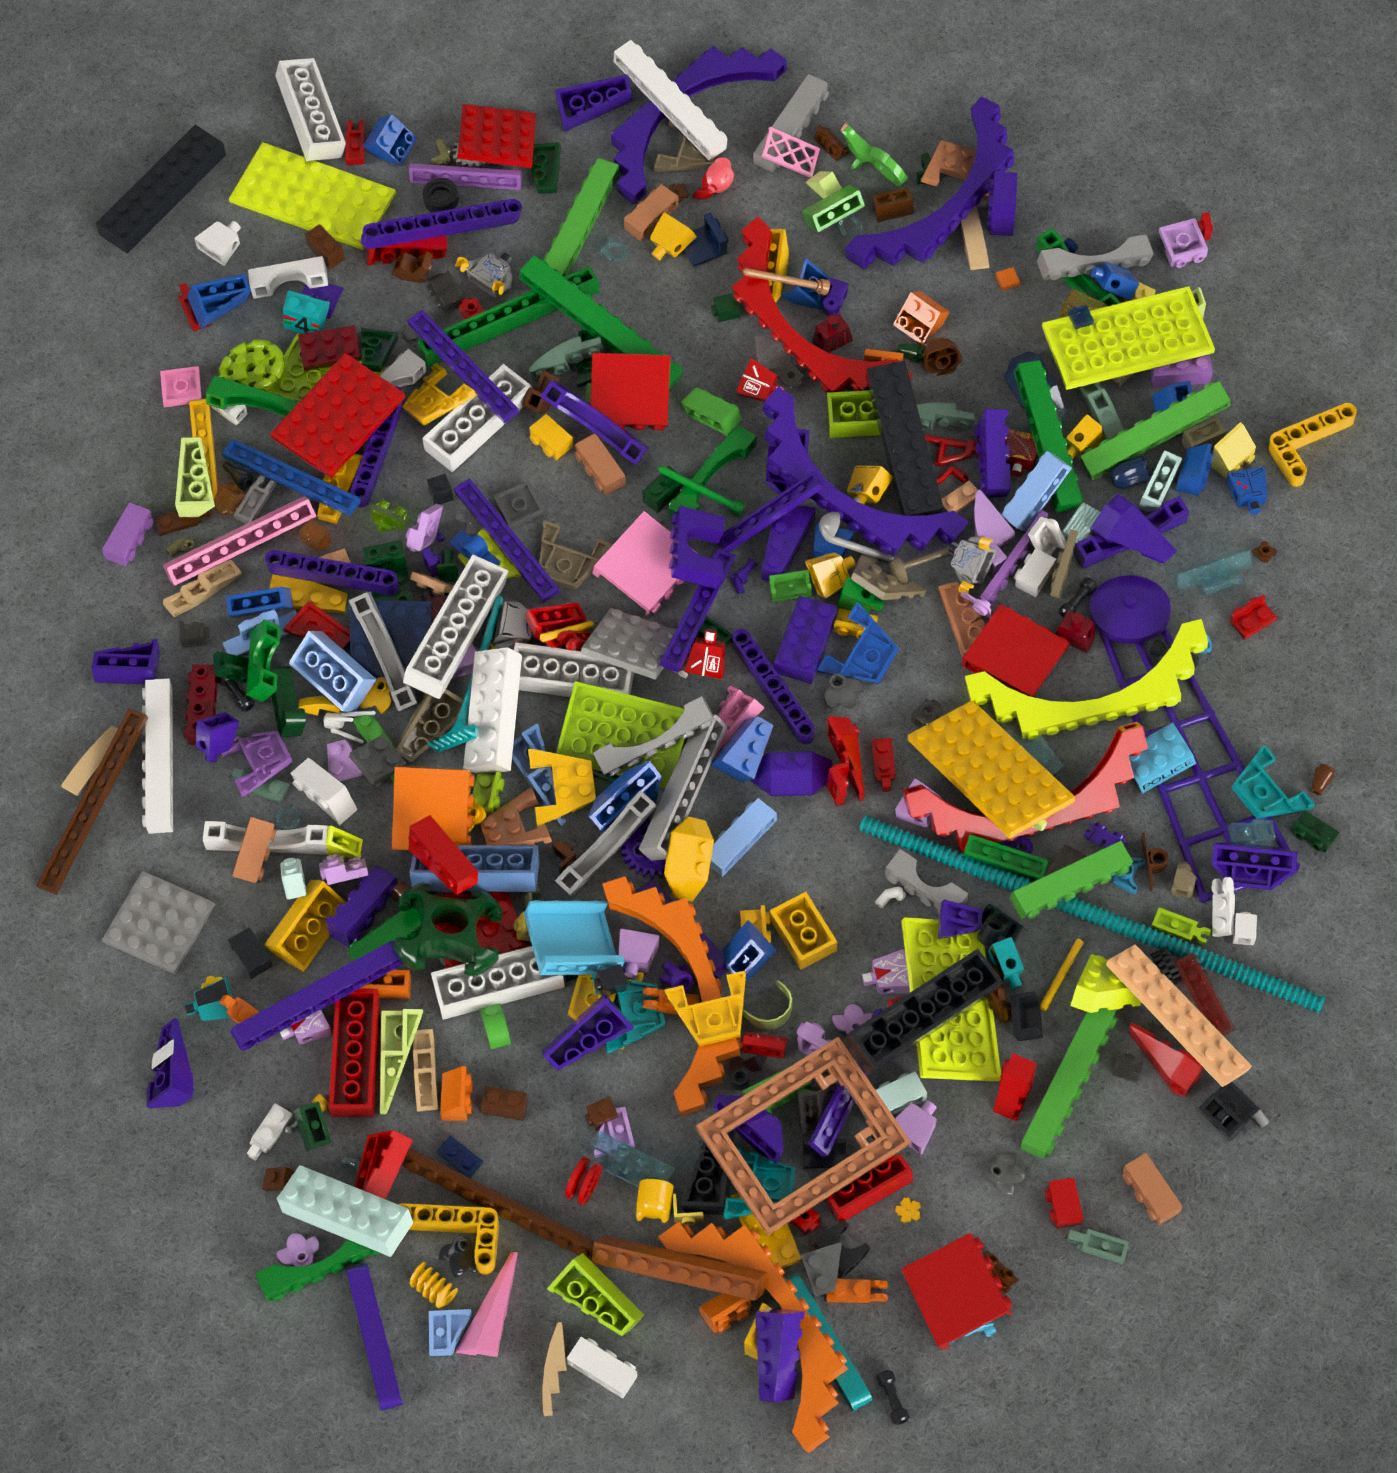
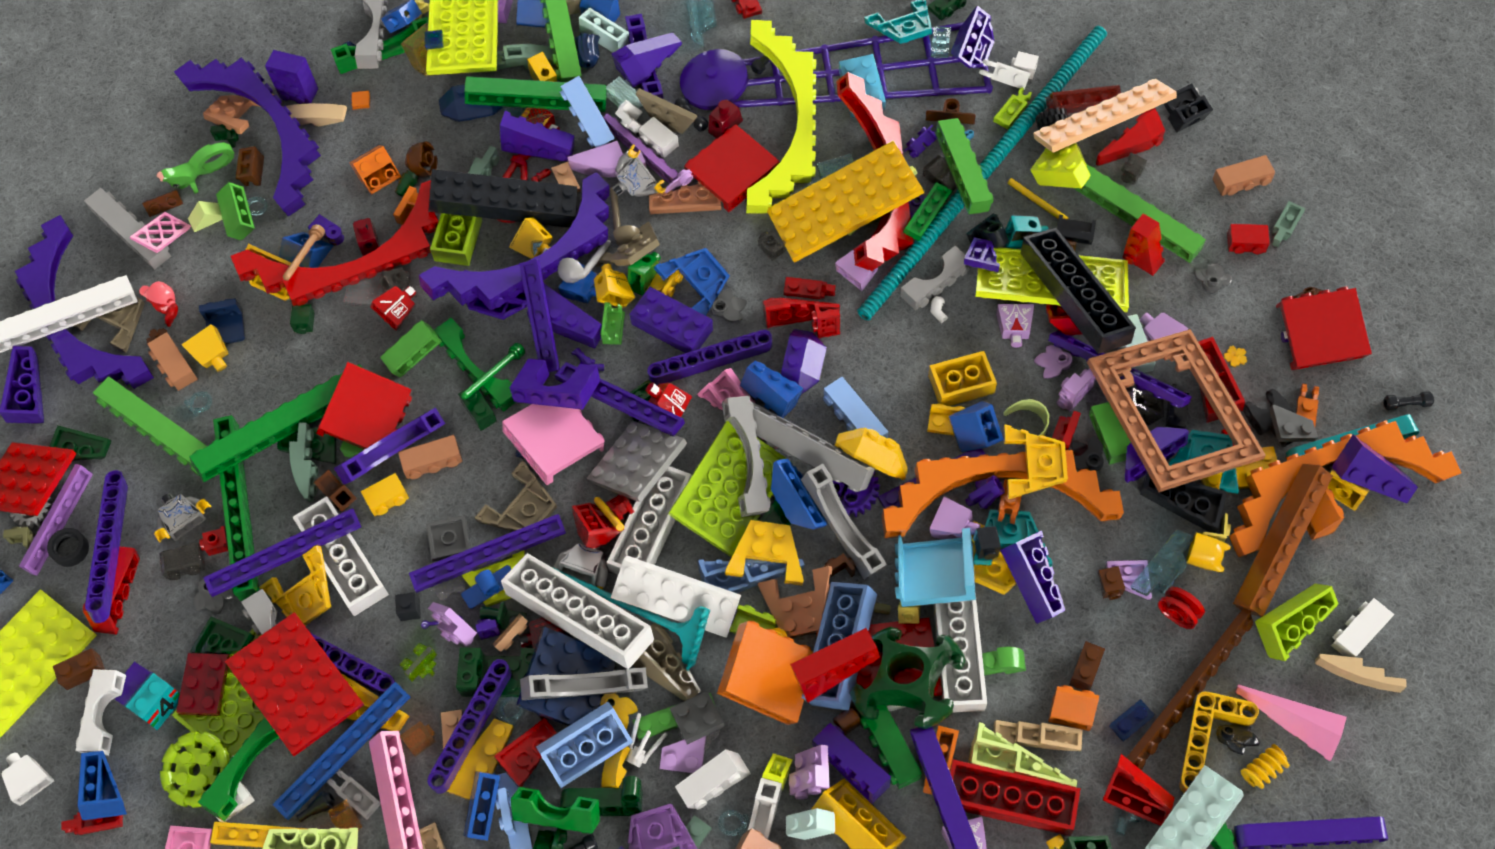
camera: 75 degrees left, 0 degrees up
(413, 269) = (143, 587): reddish brown brick -> none
(446, 1330) = (1310, 764): light blue wing -> none
(1184, 880) = (972, 96): dark tan rock -> none

